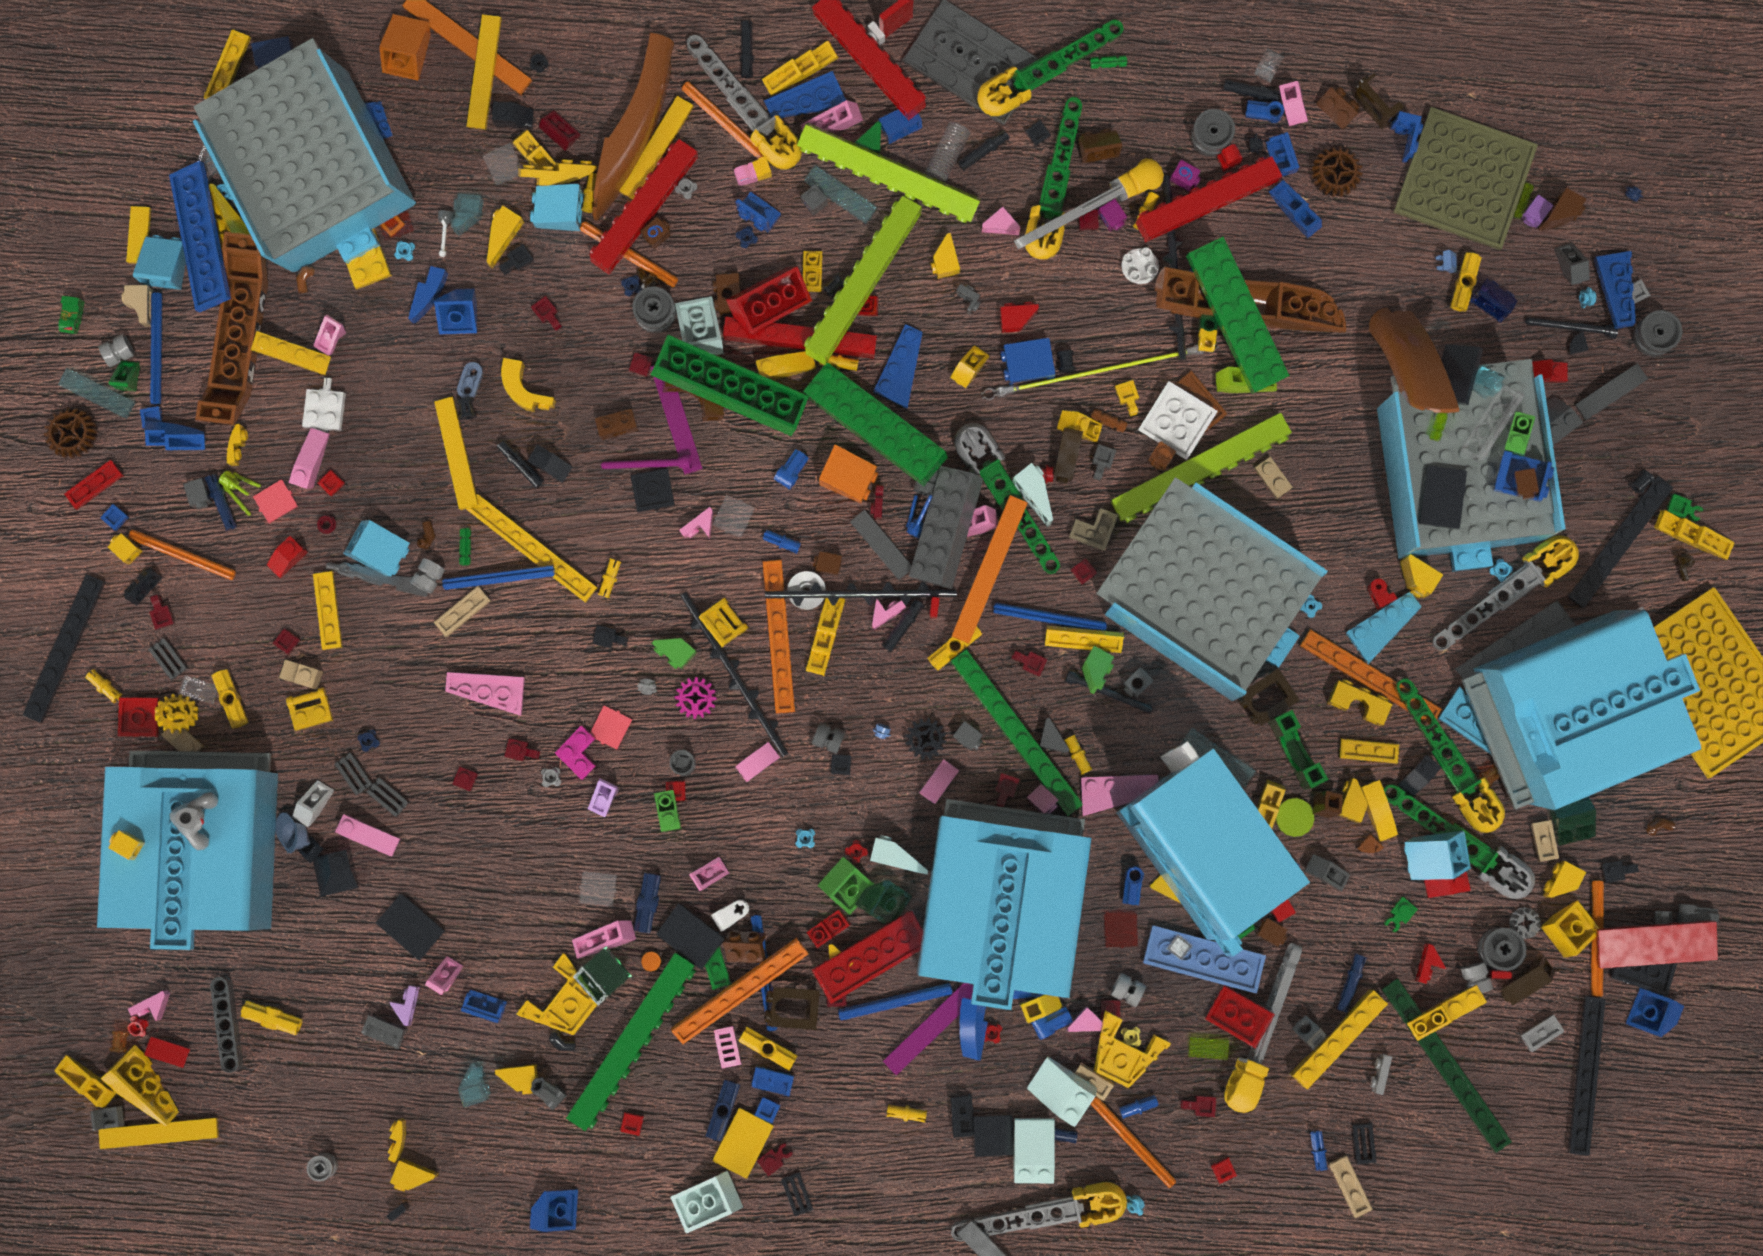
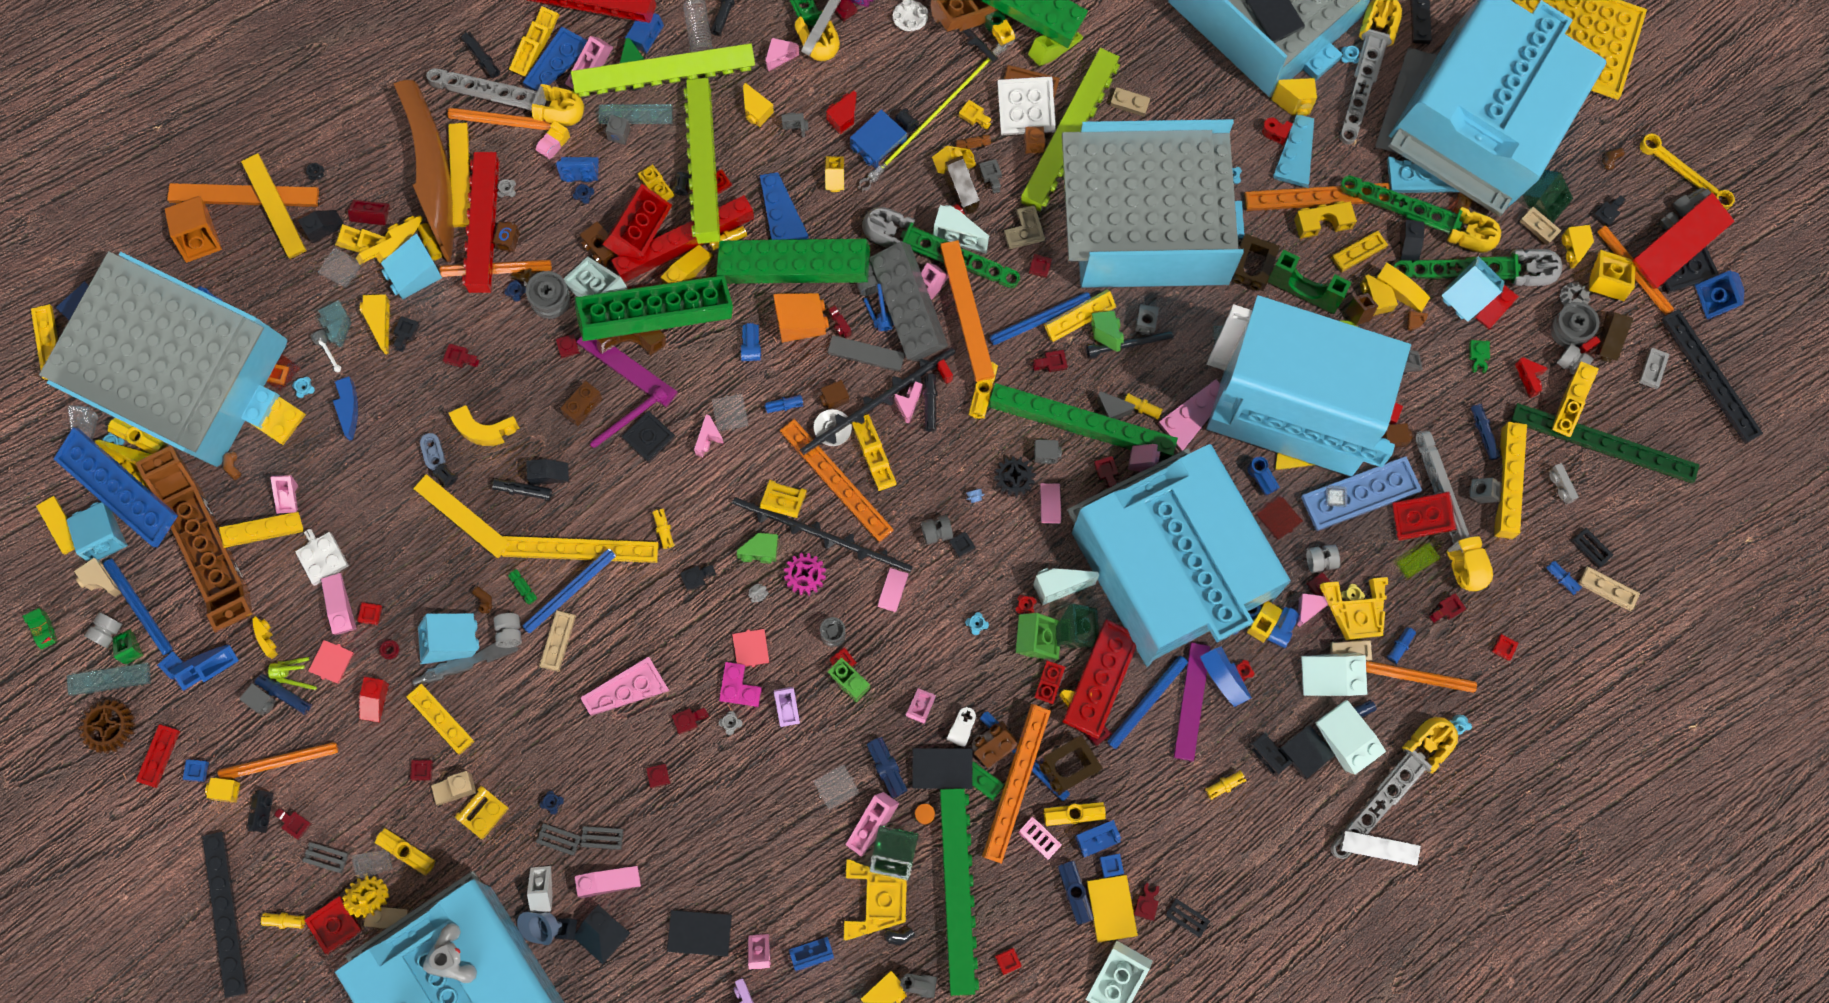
camera: 40 degrees left, 10 degrees down
(457, 312) = (383, 405): blue slope -> none
(1716, 884) = (1683, 169): none -> yellow piece

